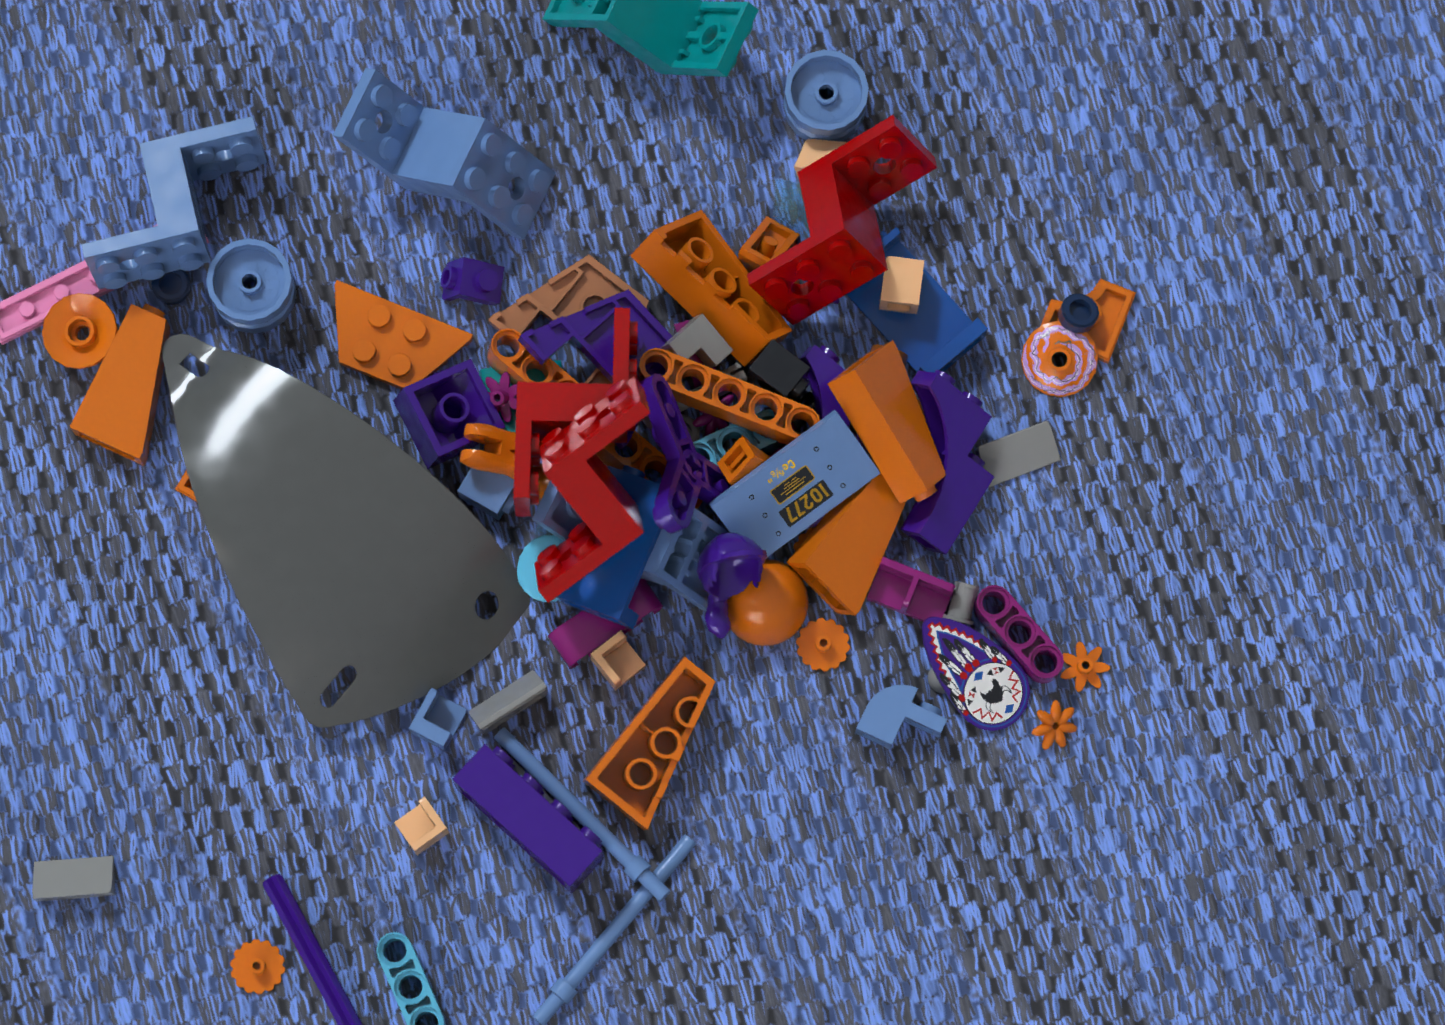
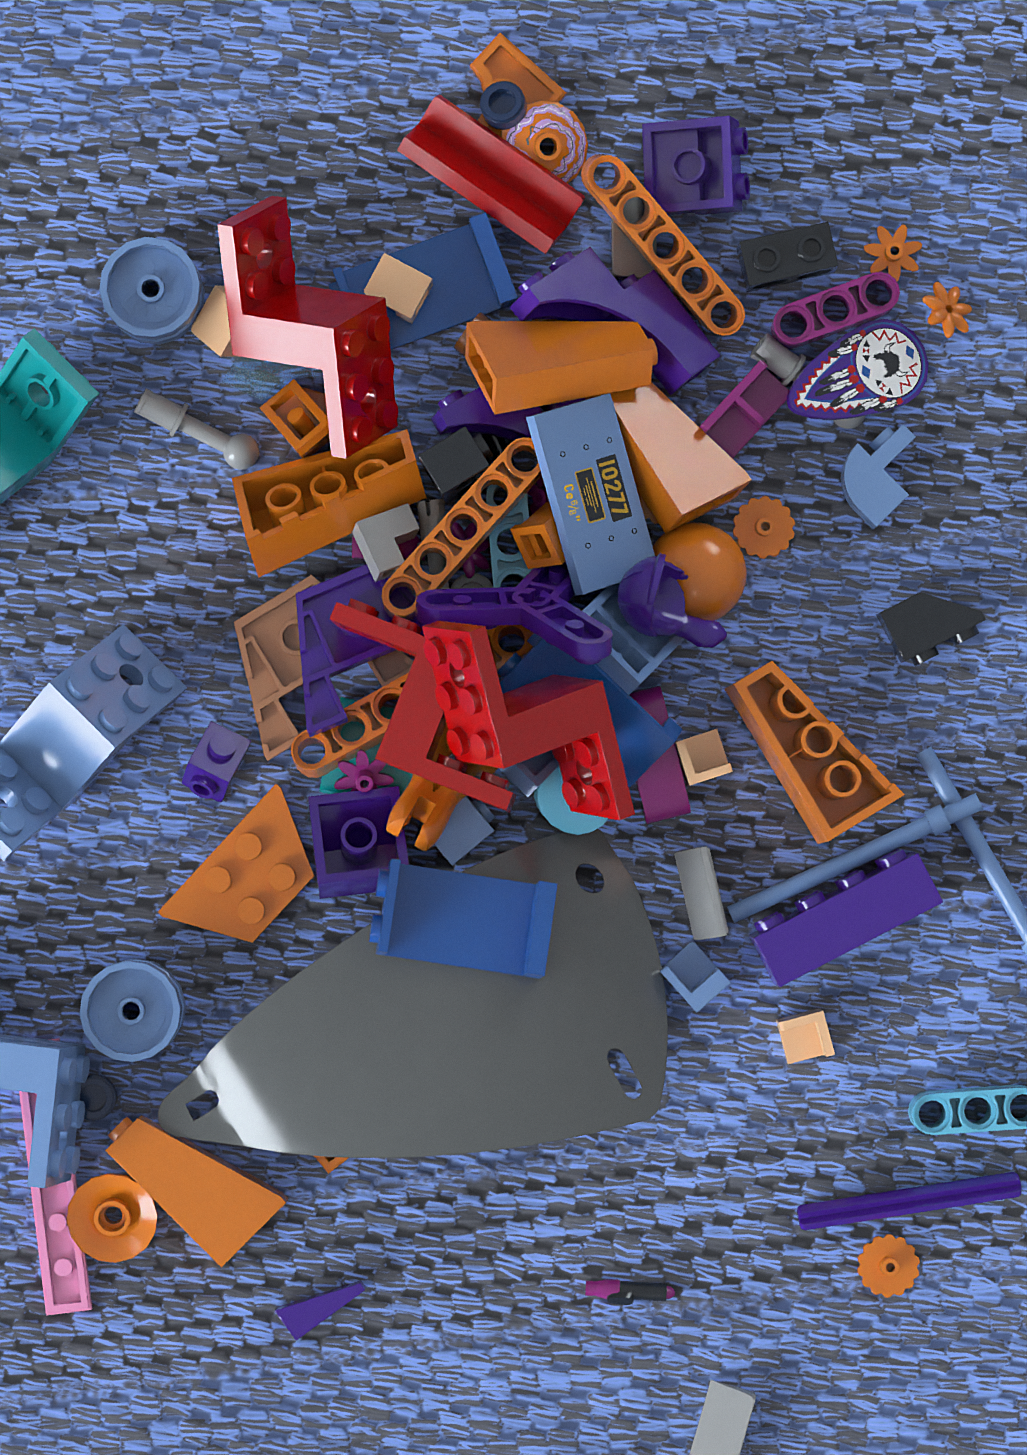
camera: 65 degrees left, 10 degrees up
(55, 512) = (309, 1312): none -> dark purple piece
(161, 760) = (626, 1291): none -> black piece
(415, 505) = (464, 919): none -> blue panel
(727, 212) = (238, 450): none -> light grey pin
(794, 799) = (924, 622): none -> black slope
(1020, 325) = (492, 174): none -> red panel
(1030, 461) = (683, 253): none -> orange beam
(1046, 579) = (787, 257): none -> black brick
(1089, 481) = (696, 165): none -> dark purple plate

